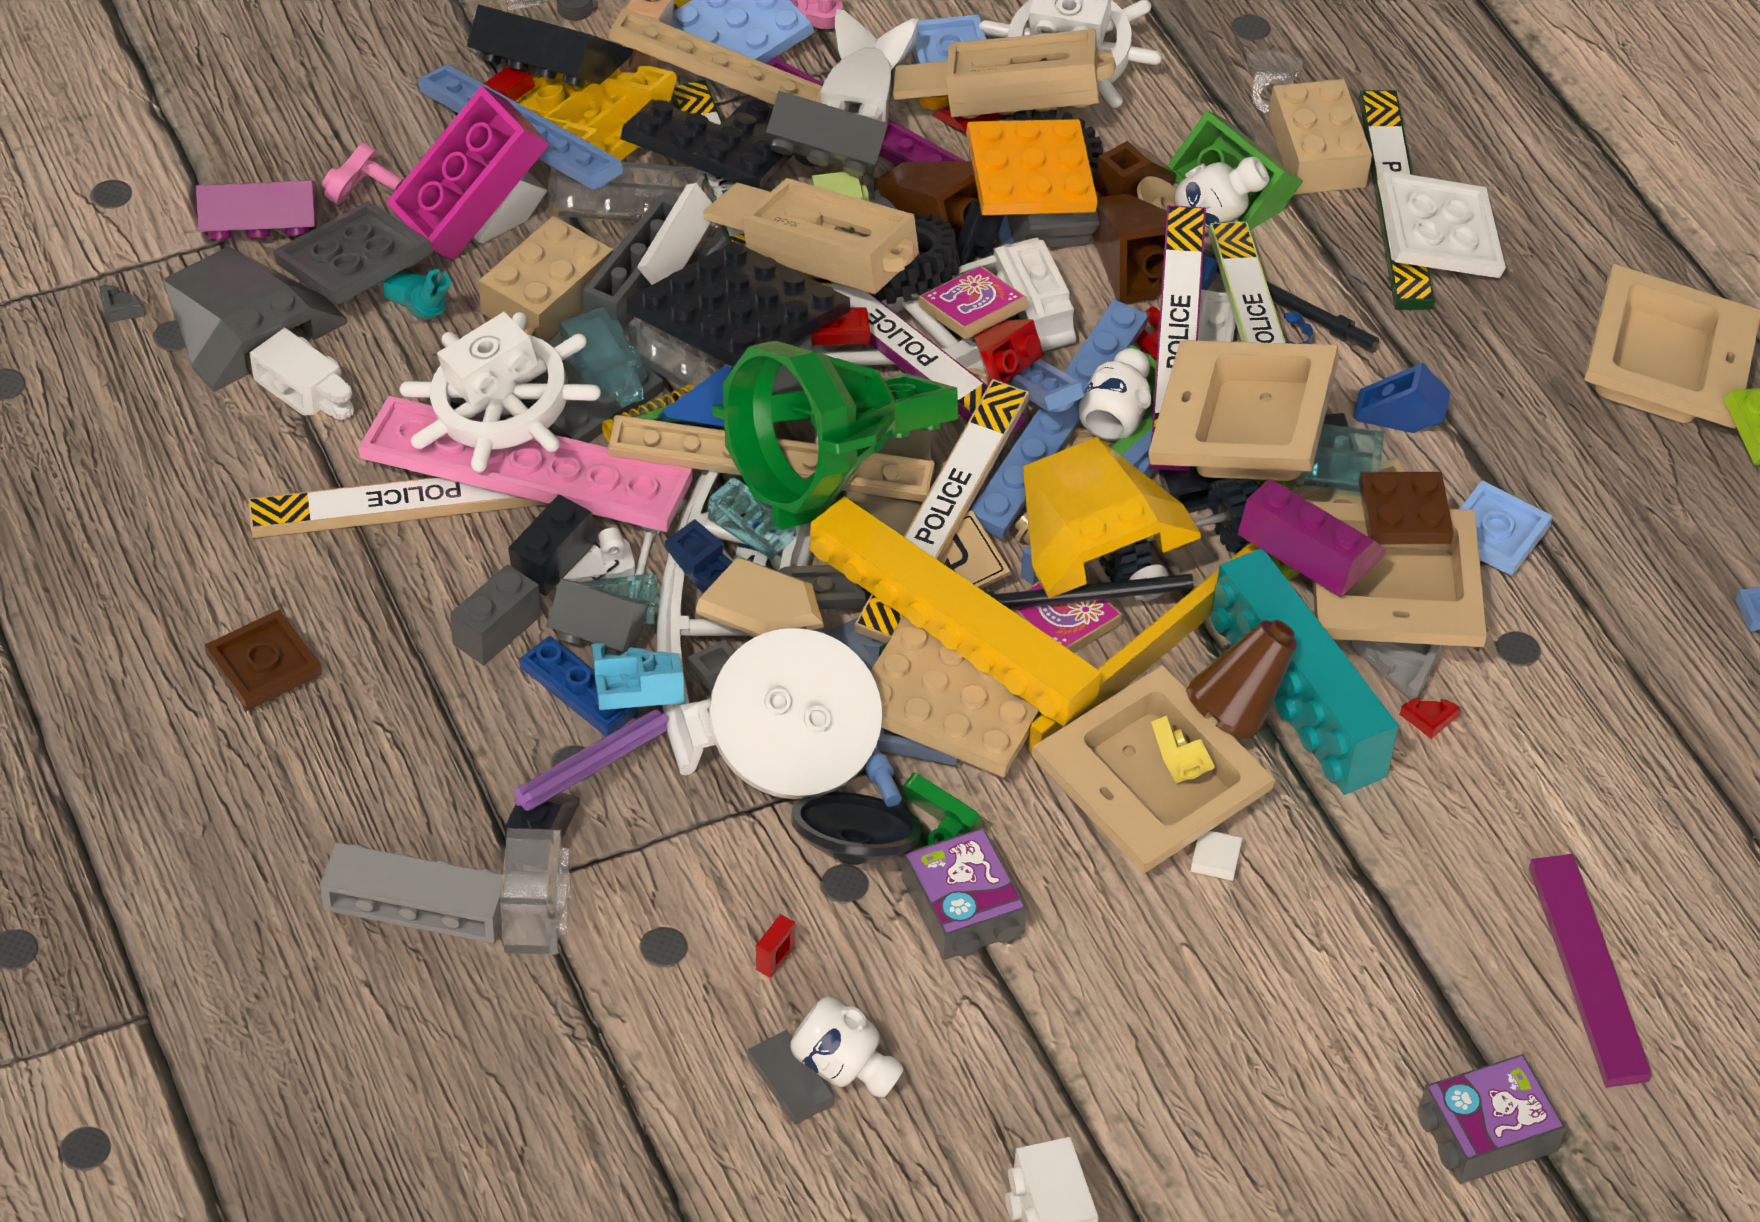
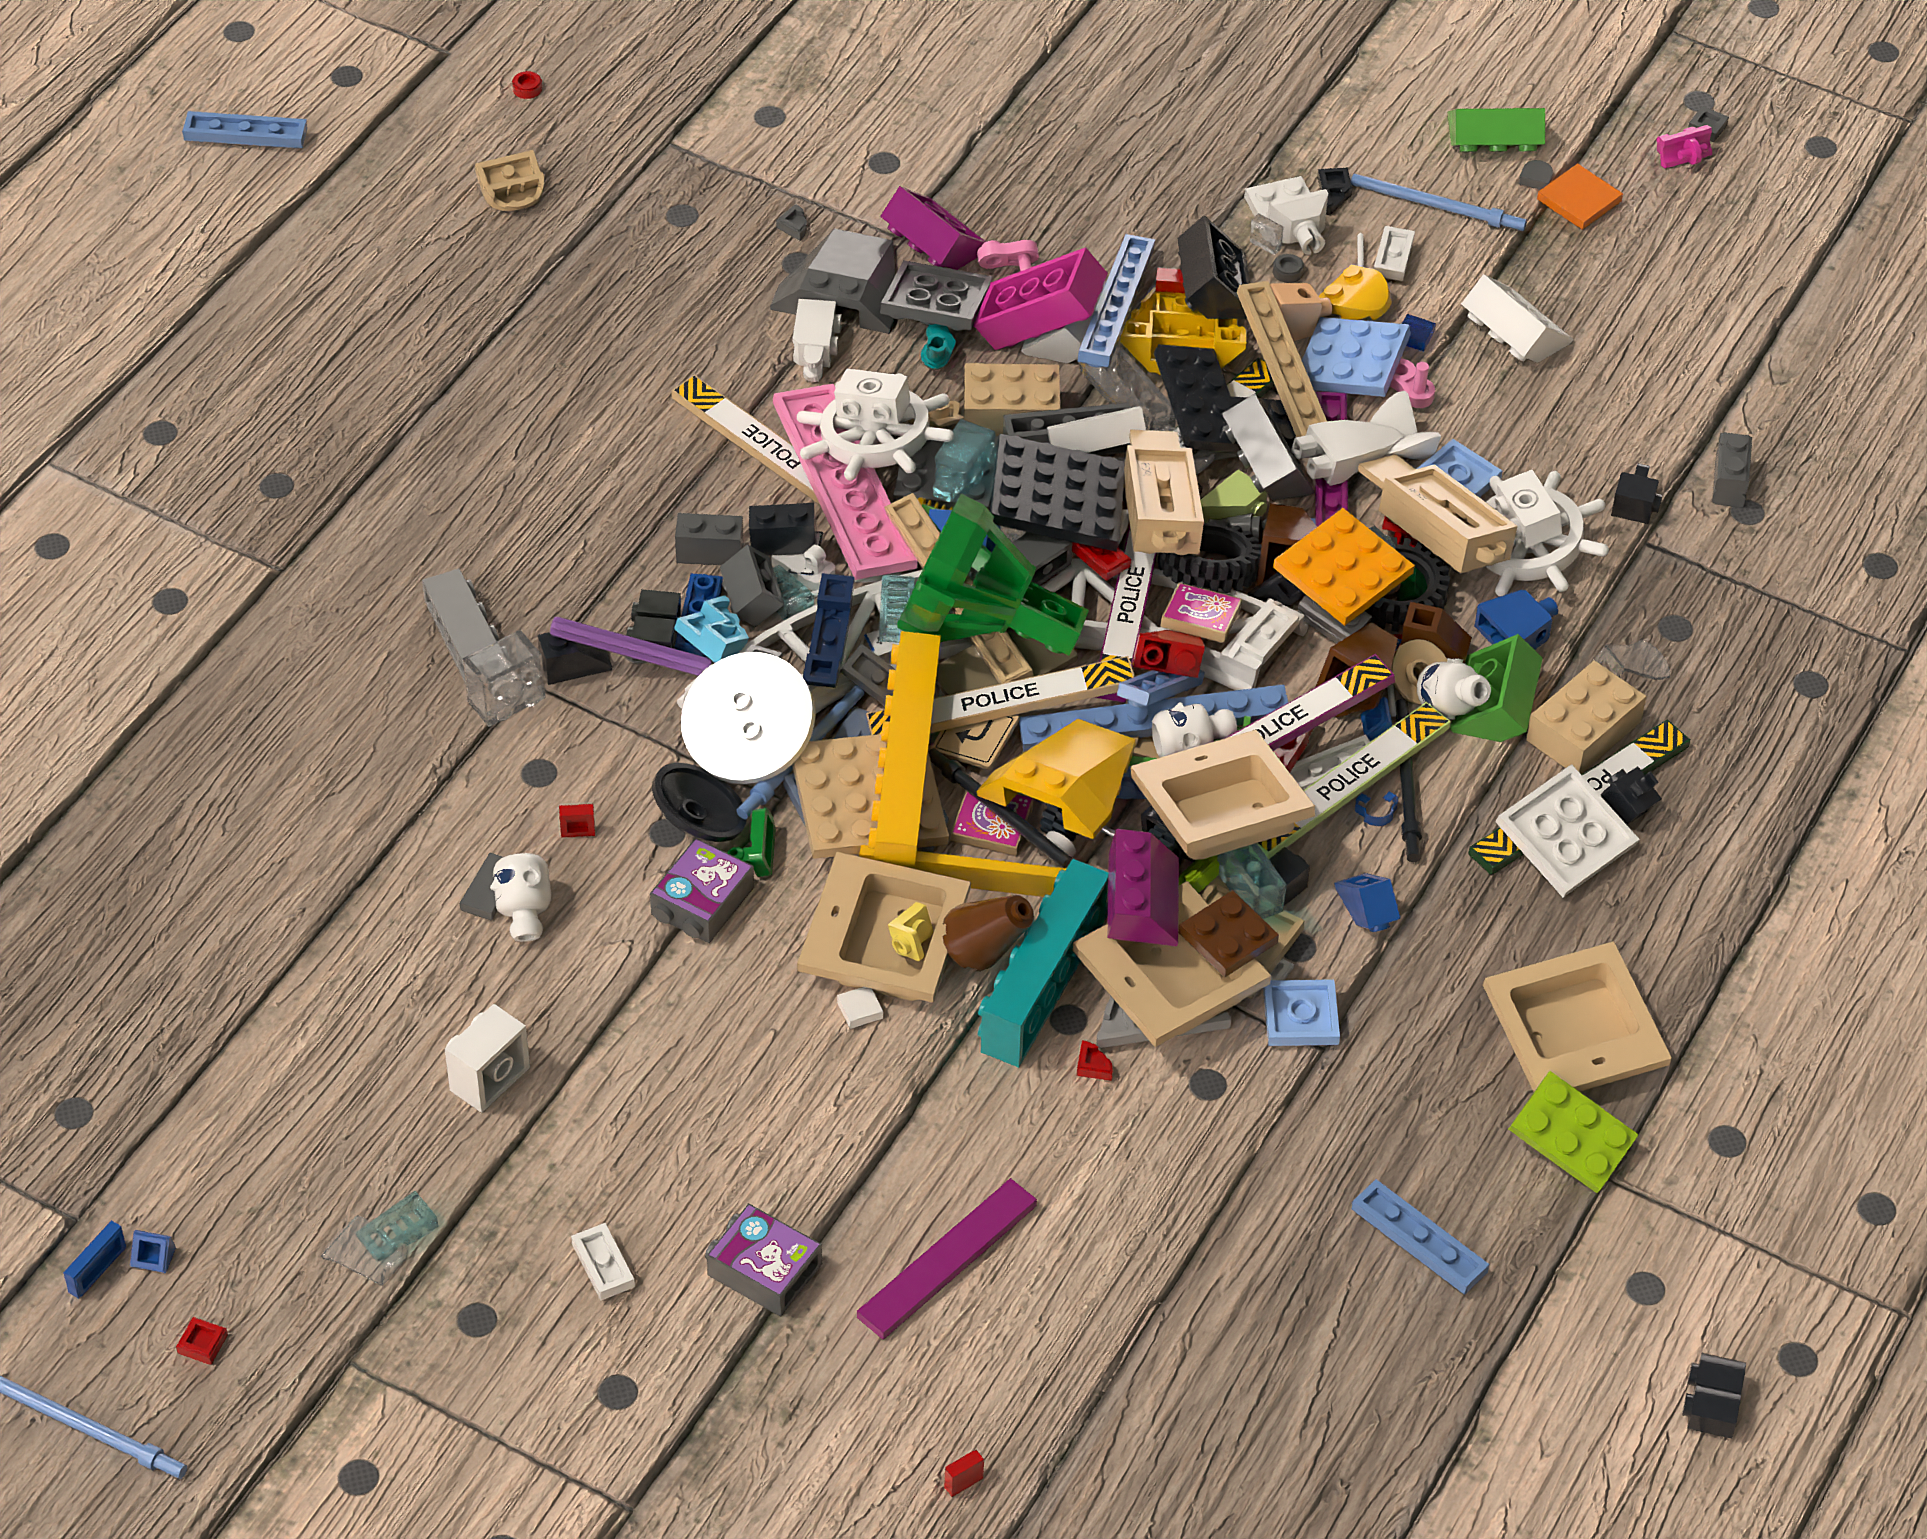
camera: 55 degrees right, 0 degrees up
(263, 659) = (576, 458): reddish brown plate -> none
(554, 723) = (655, 617): none -> pearl dark grey piece
(759, 600) = (821, 647): tan tile -> none
(1164, 113) = (1516, 615): none -> blue torso
(1438, 155) = (1631, 794): none -> black brick

